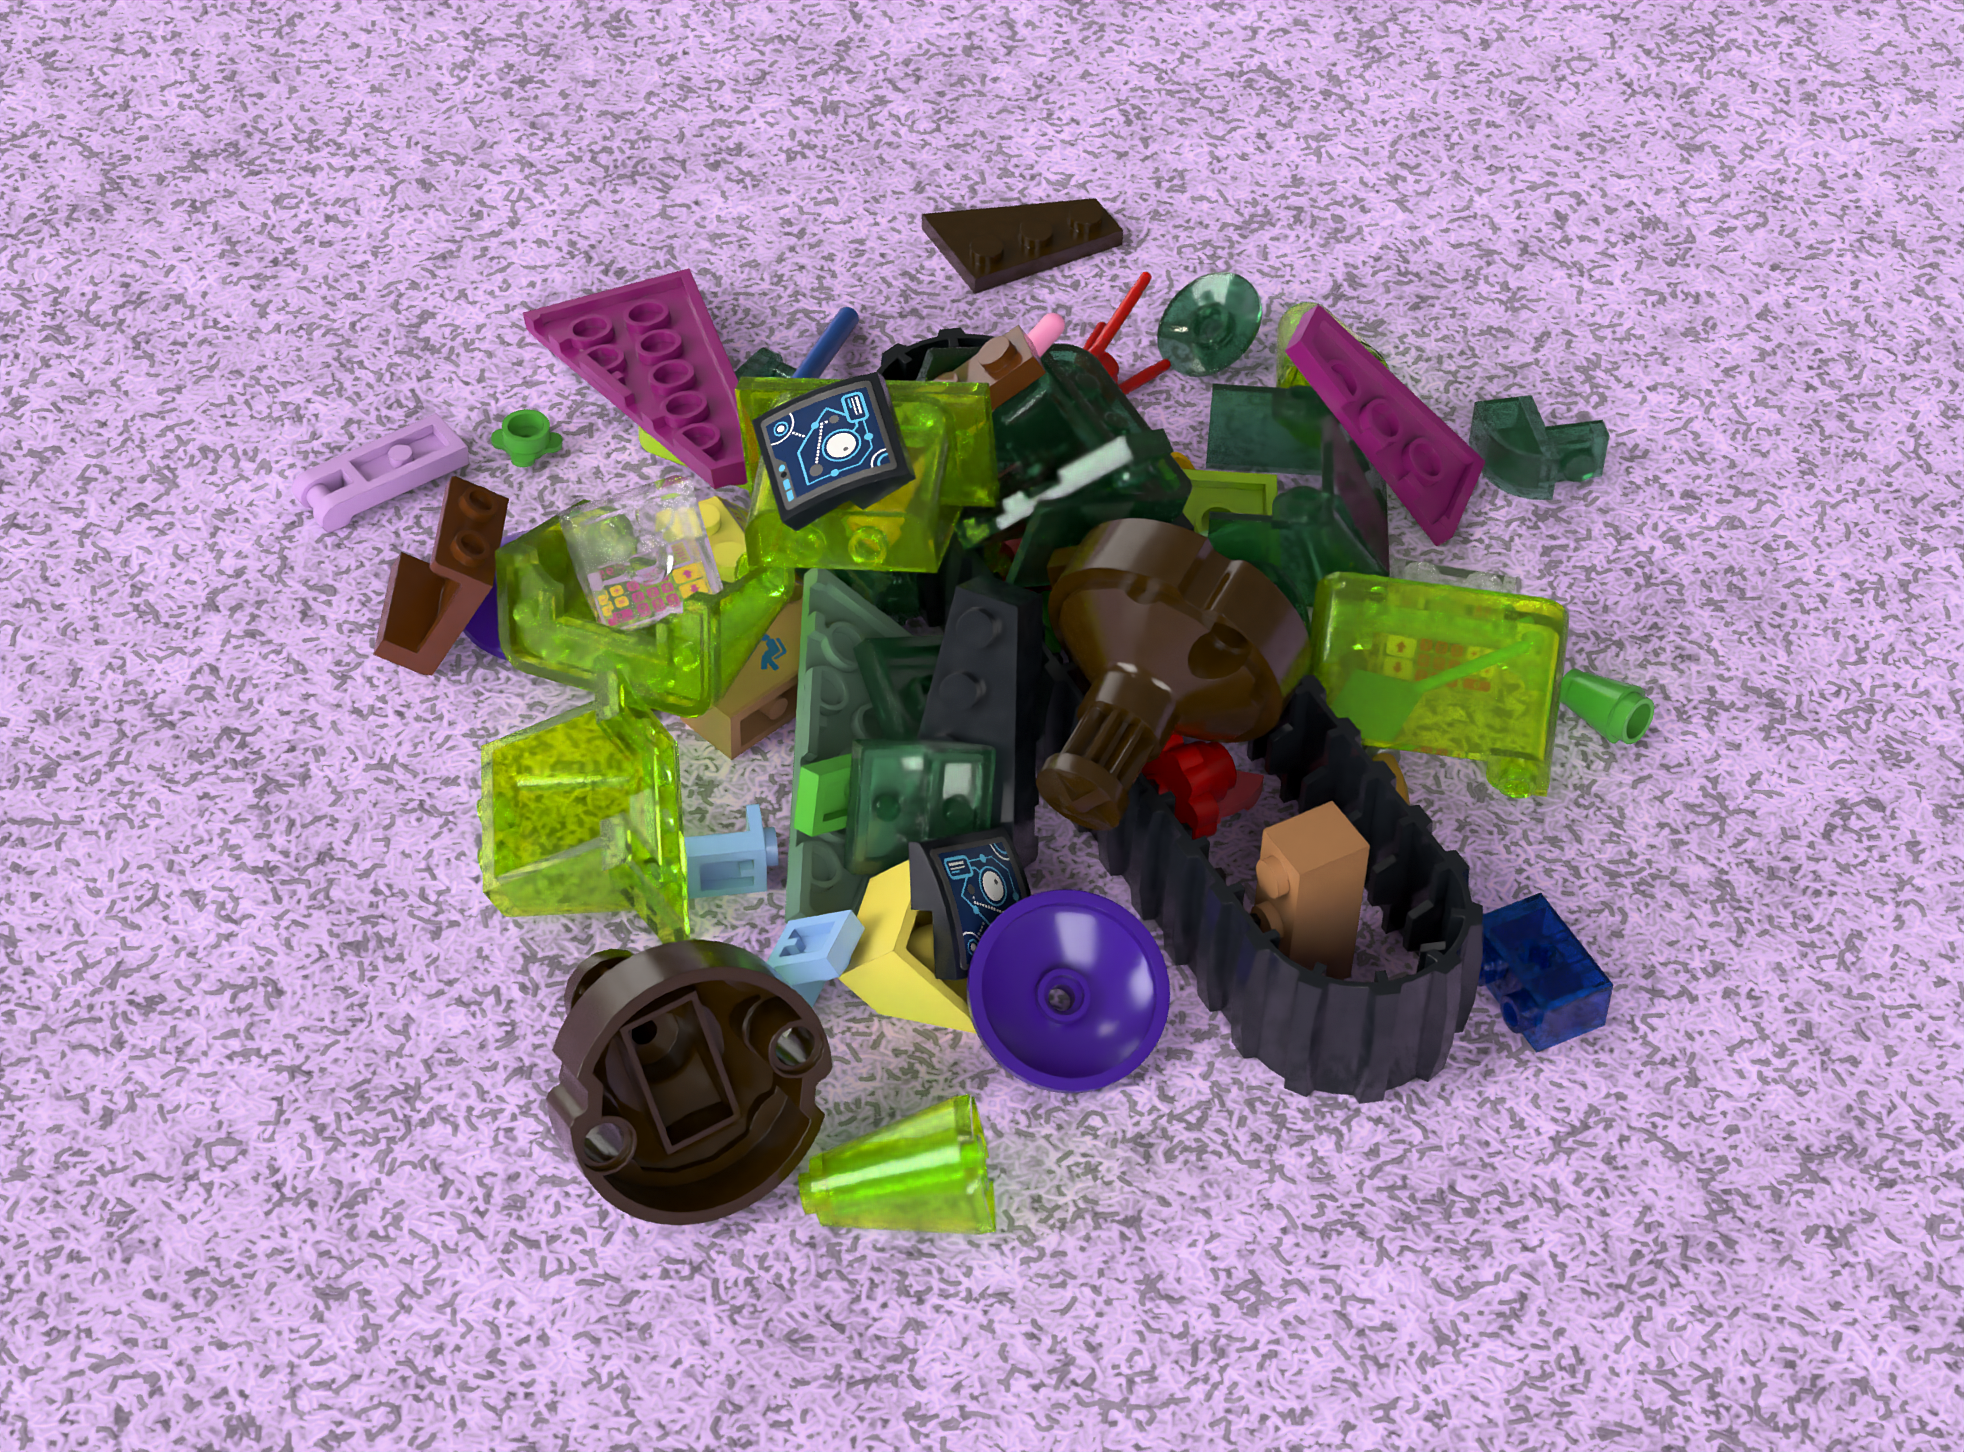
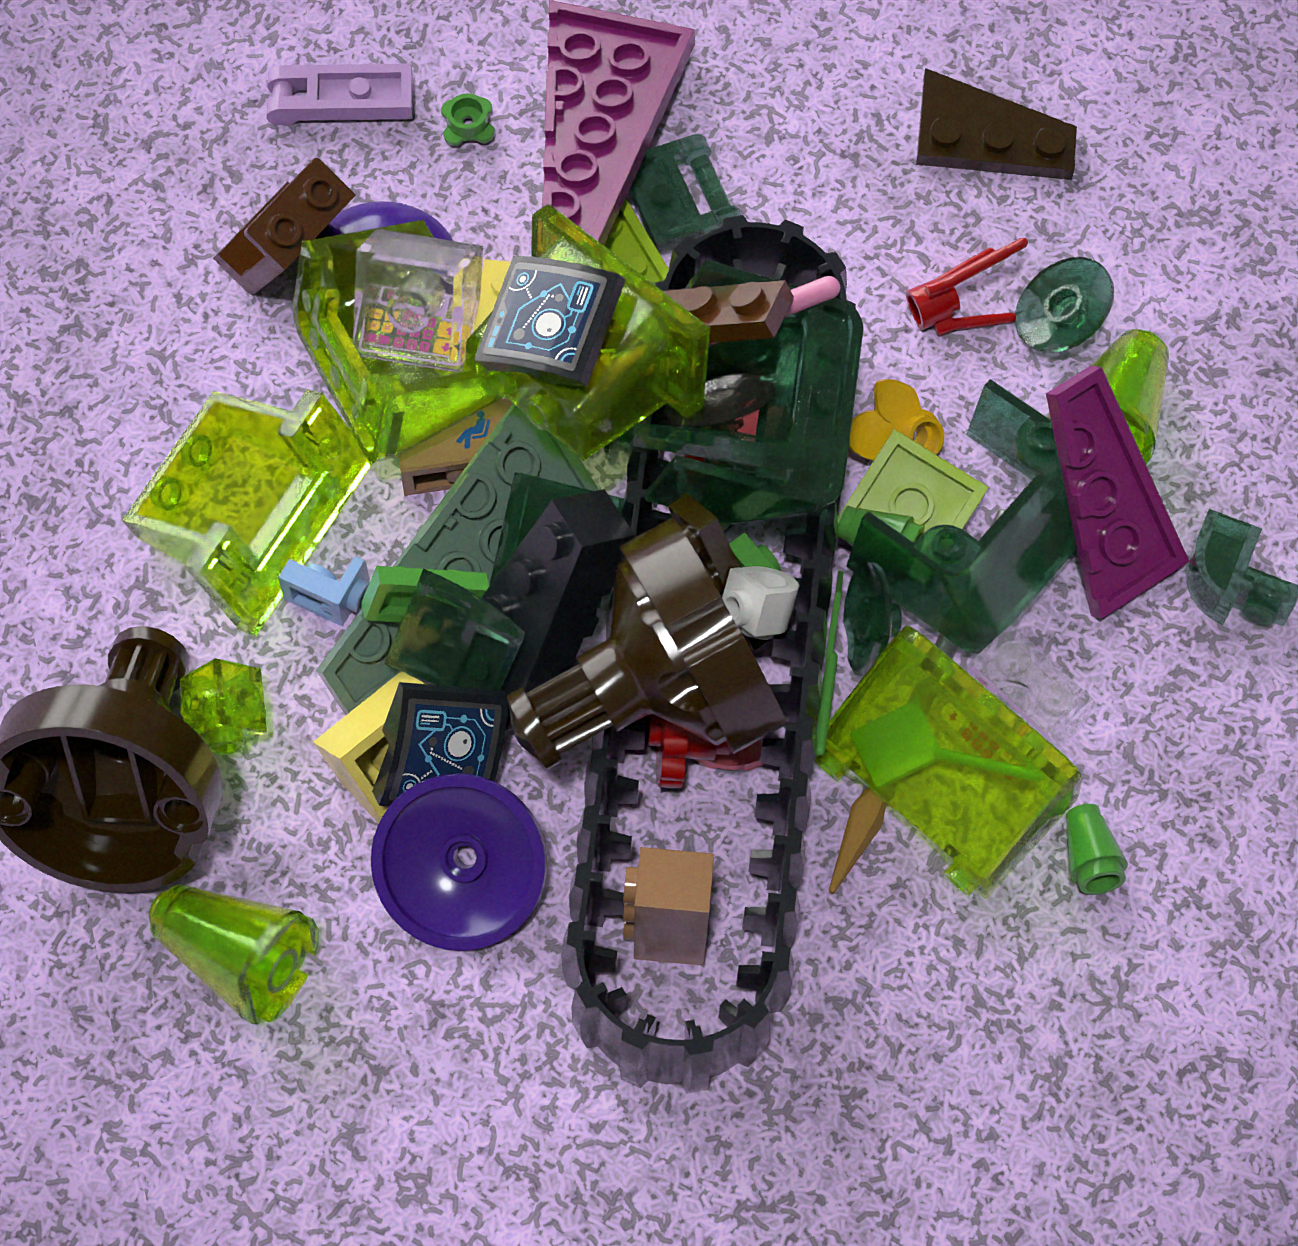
camera: 35 degrees right, 20 degrees up
(816, 951) = (306, 713): light blue bracket -> none
(828, 344) = (716, 175): blue bar -> none
(1541, 974) = (848, 1029): clear blue brick -> none

